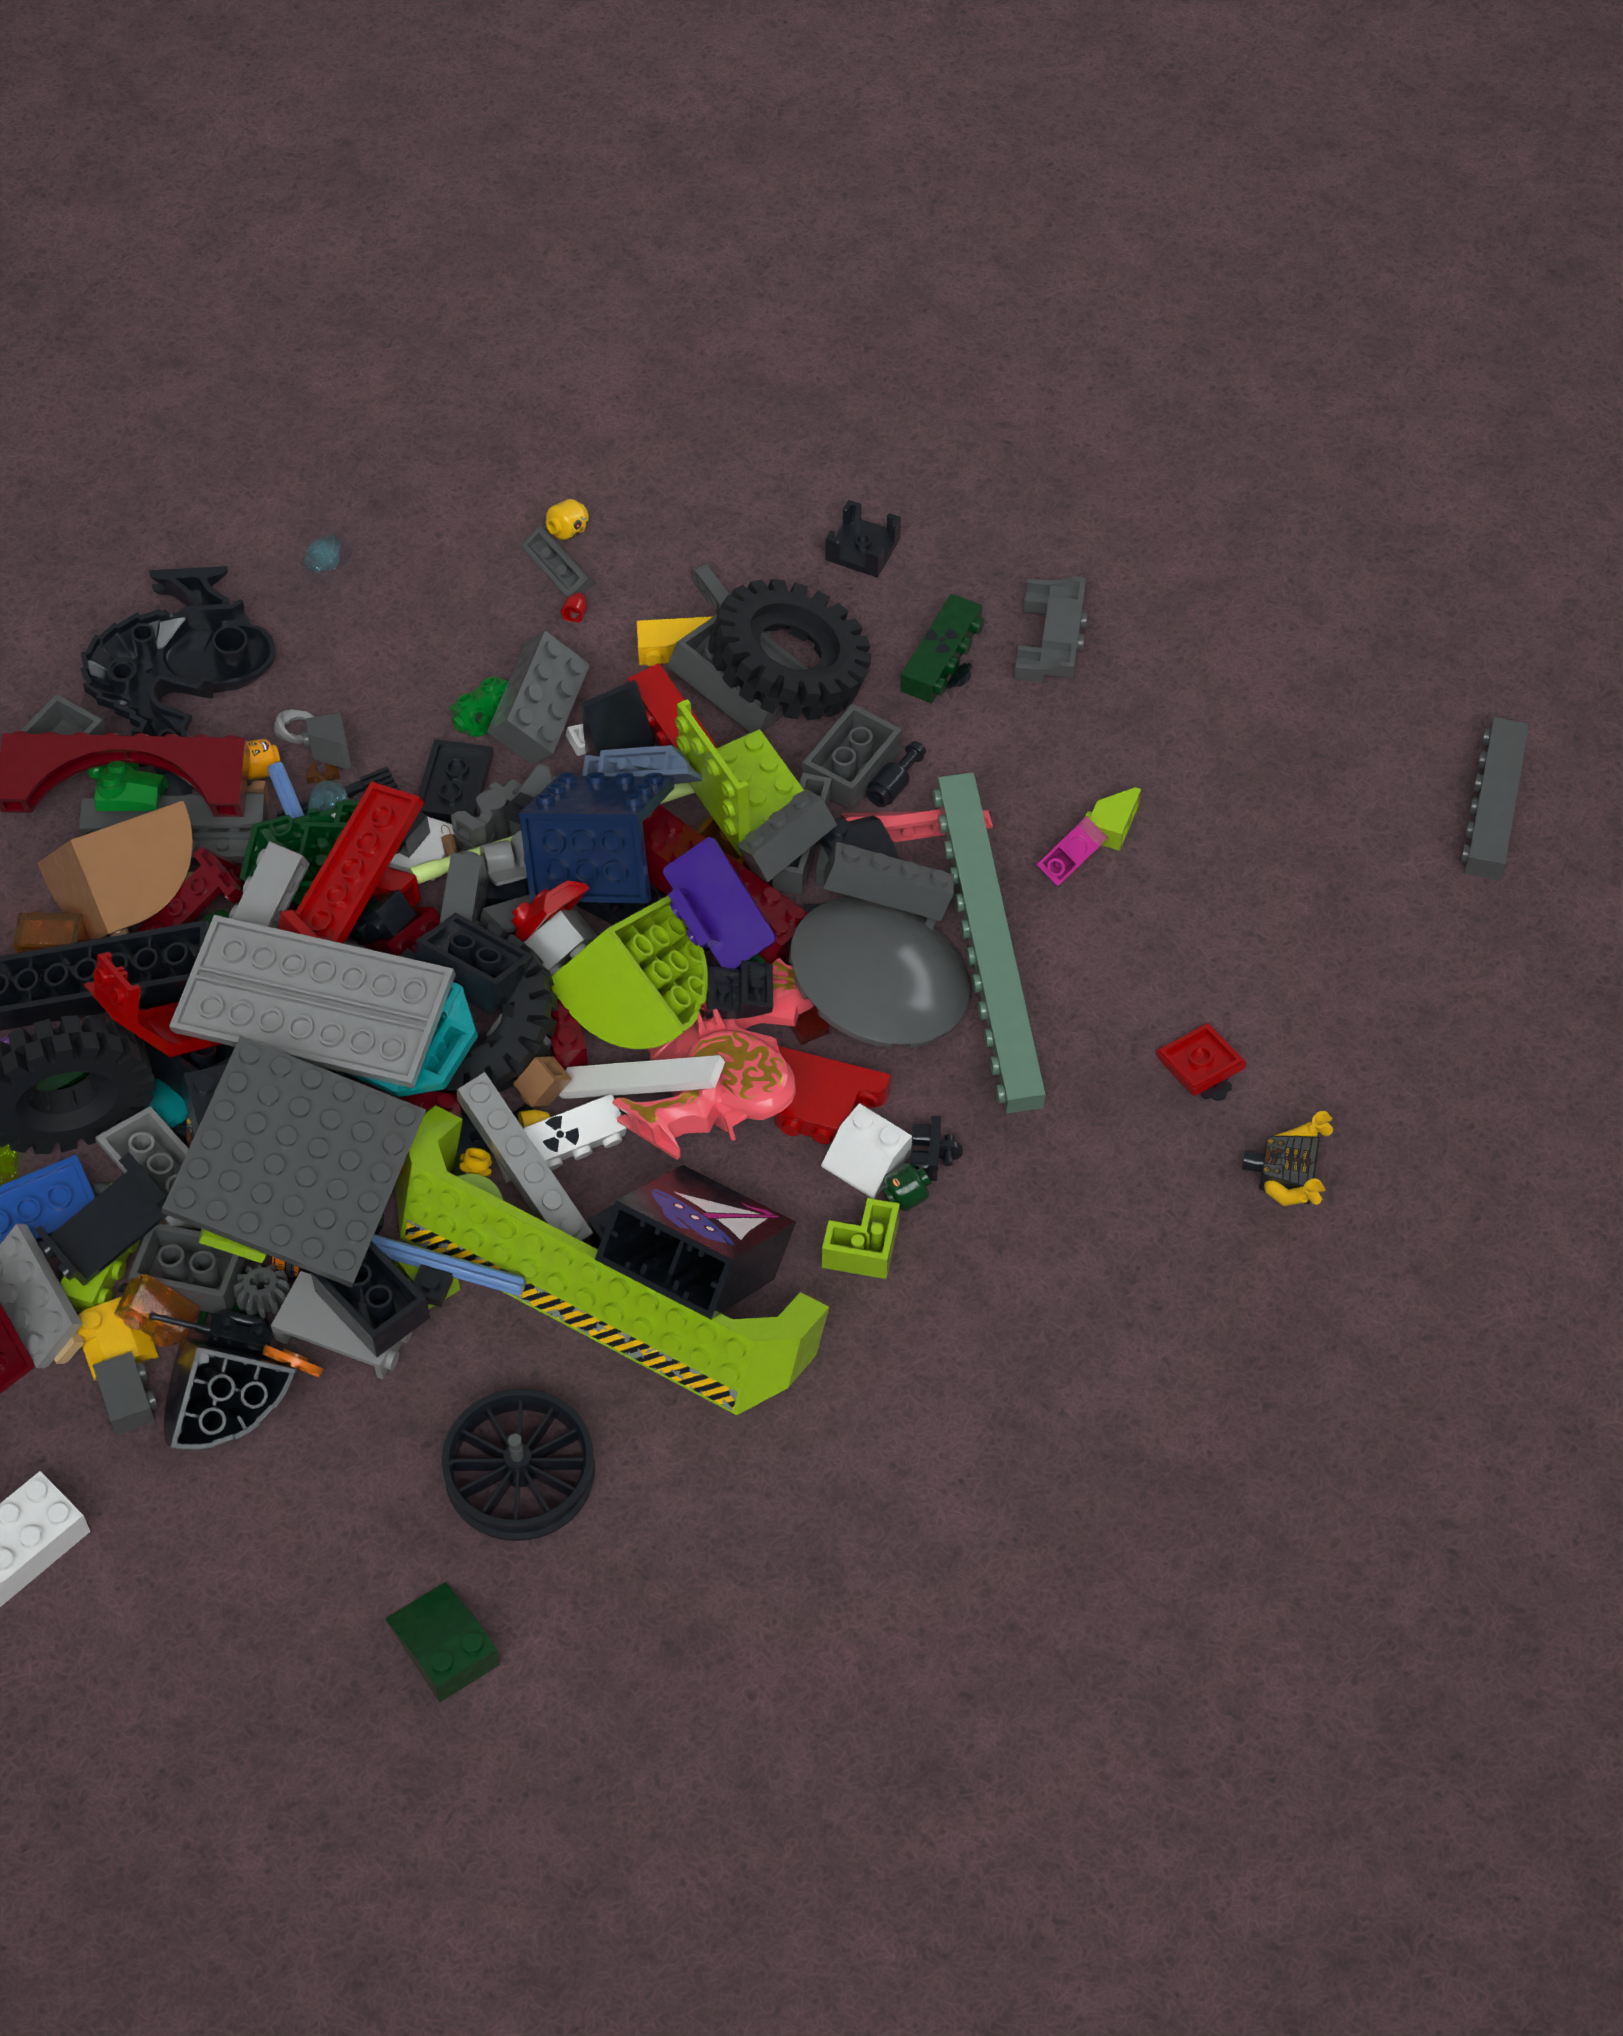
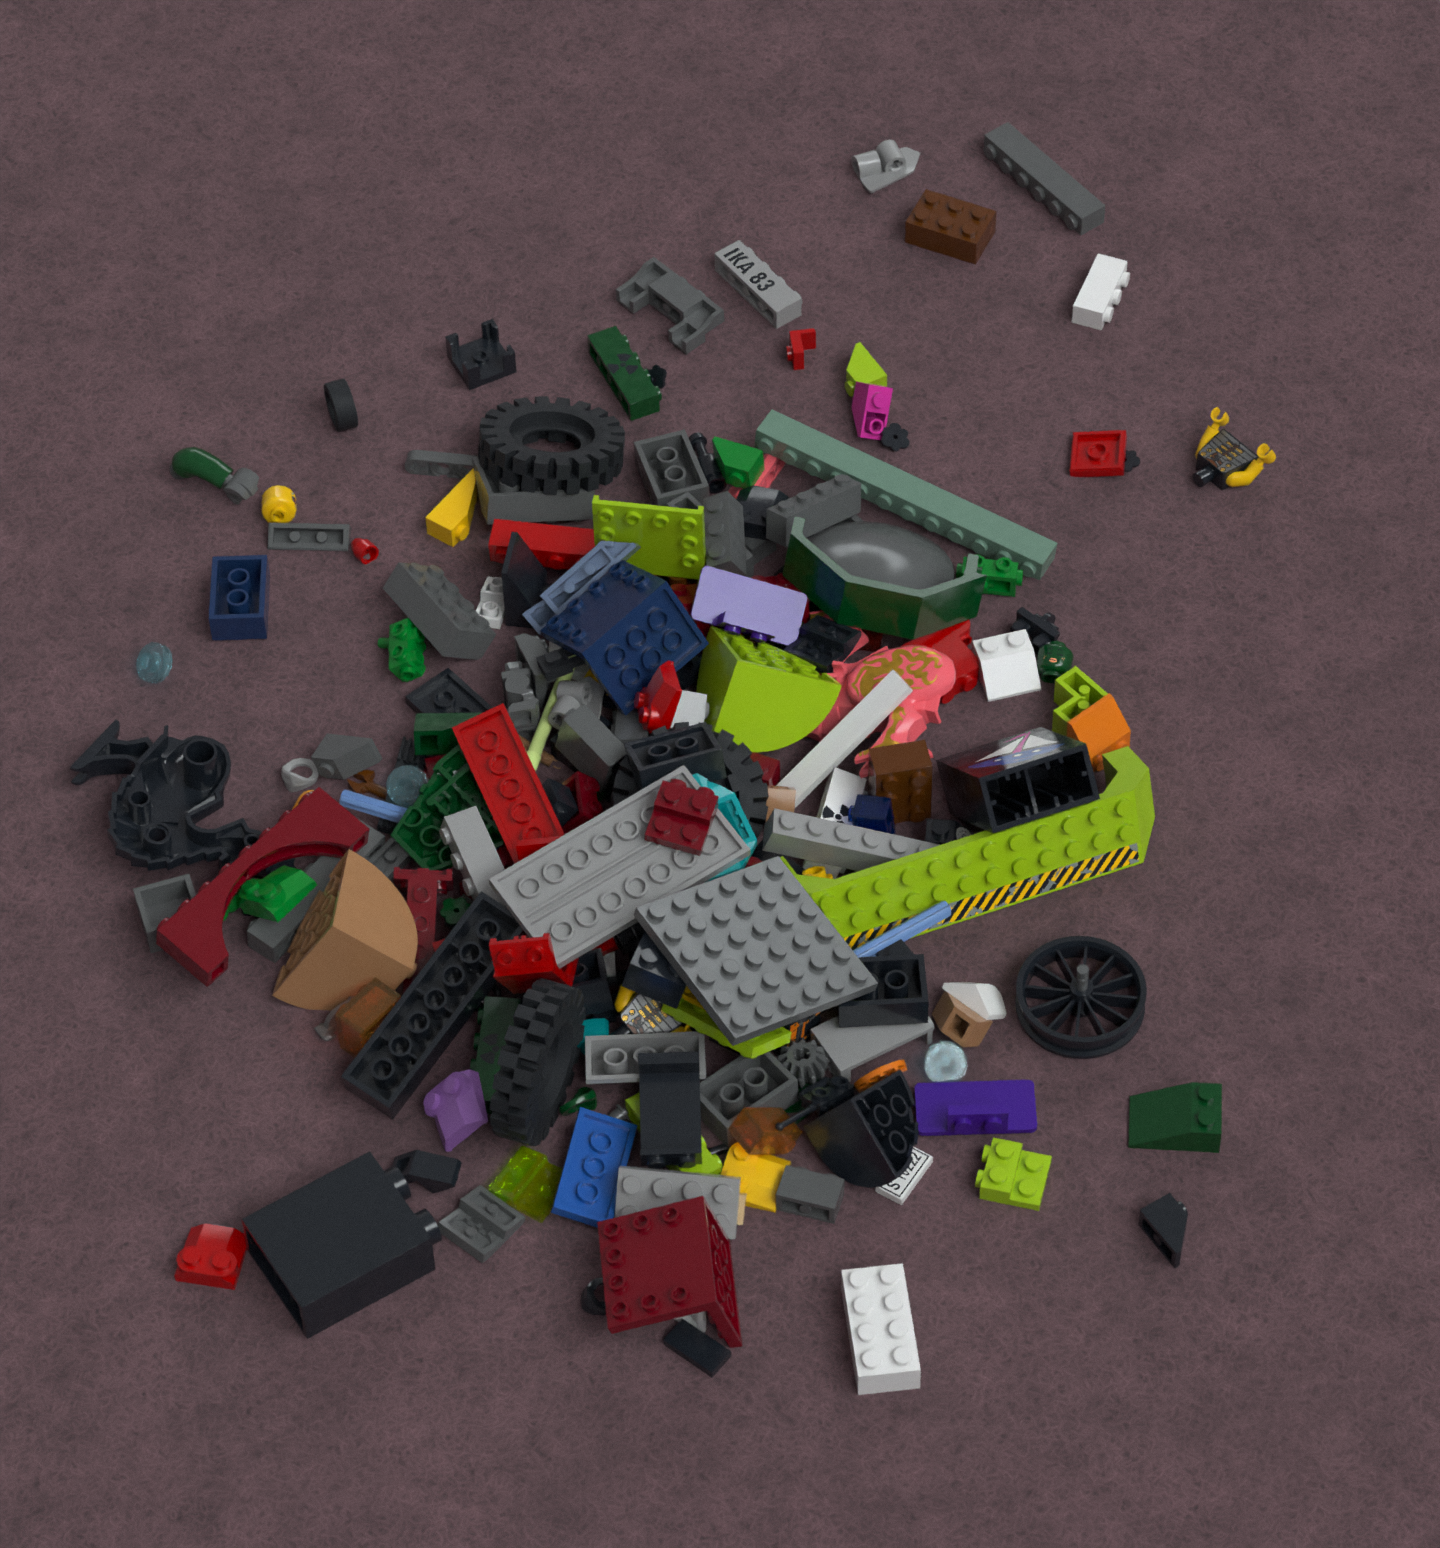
camera: 50 degrees left, 5 degrees down
(95, 1153) = (584, 1098): none -> dark green piece
(218, 1458) = (901, 1187): none -> white tile
(273, 1543) = (1013, 1174): none -> lime plate
(304, 1713) = (1165, 1226): none -> black slope
(329, 1463) = (975, 1107): none -> dark purple bracket
(354, 1403) = (945, 1062): none -> clear light blue plate
(392, 1006) = (682, 816): none -> dark red plate
(403, 776) = (434, 732): none -> dark green slope
(411, 1386) = (960, 1021): none -> medium nougat slope
(438, 559) = (239, 597): none -> dark blue brick
(452, 1381) = (979, 997): none -> white slope
(556, 455) = (202, 464): none -> dark green piece
(578, 1166) = (872, 813): none -> clear blue slope
(628, 1149) = (905, 777): none -> reddish brown brick
(708, 484) = (340, 405): none -> black tyre
(822, 1031) = (879, 604): none -> dark green panel
(841, 1276) = (1101, 729): none -> orange slope
(897, 793) = (737, 462): none -> green slope
(955, 1062) = (1001, 574): none -> green brick
(1063, 883) = (895, 437): none -> black plant
(1096, 748) = (798, 342): none -> red bracket
(1143, 674) = (758, 284): none -> light grey brick
(1359, 766) = (950, 226): none -> reddish brown brick
(1389, 673) = (884, 165): none -> light grey panel
(1400, 931) = (1100, 292): none -> white brick

